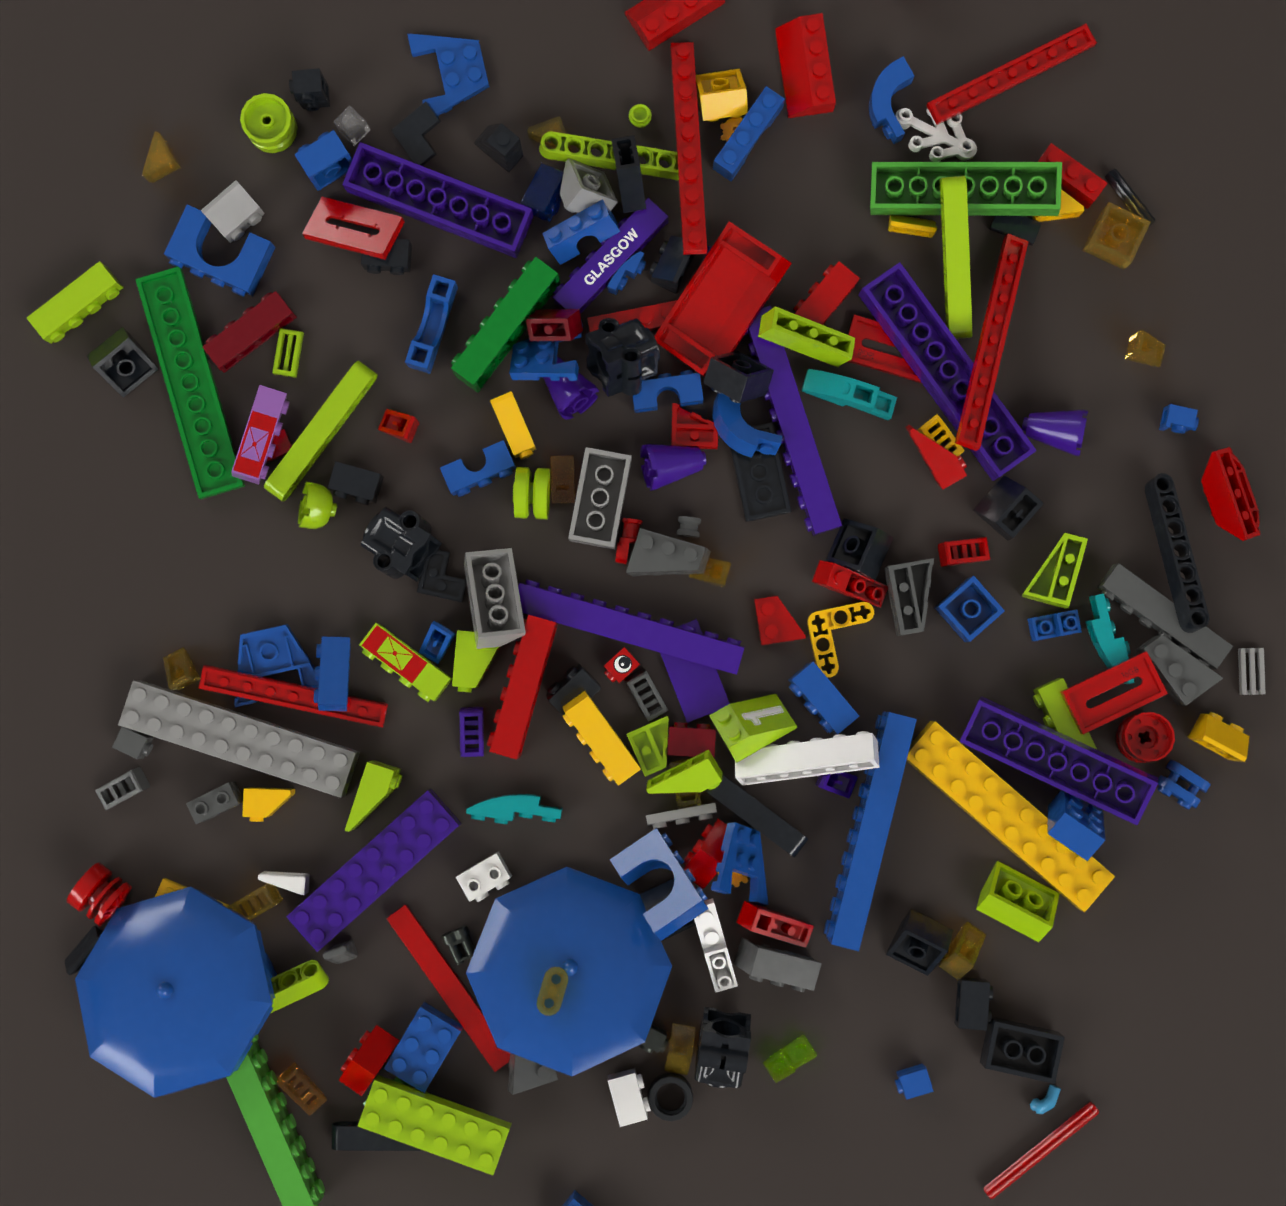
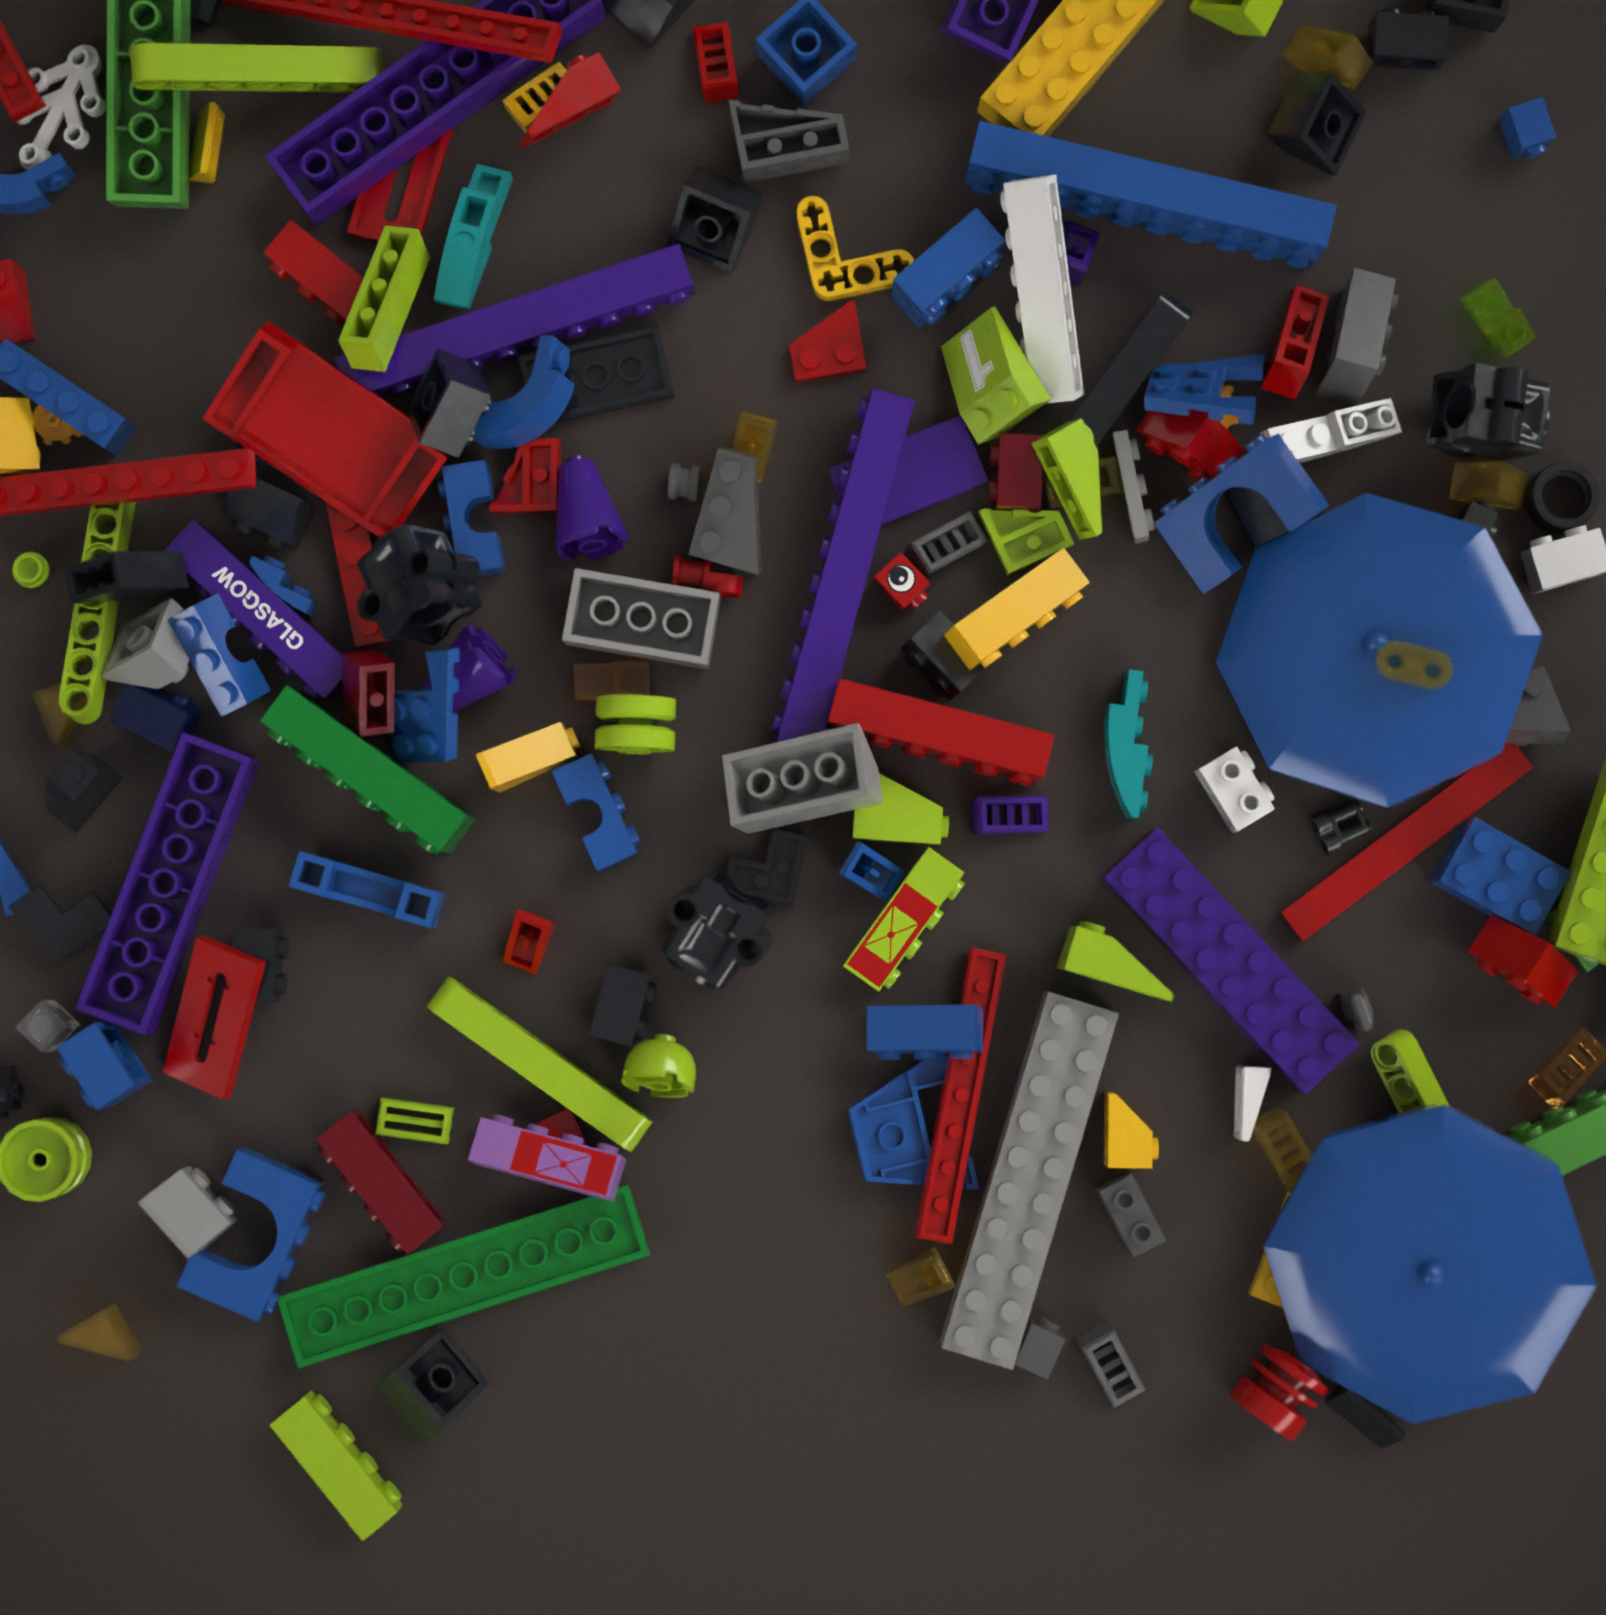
camera: 95 degrees left, 0 degrees up
(849, 583) = (768, 234): red slope -> none

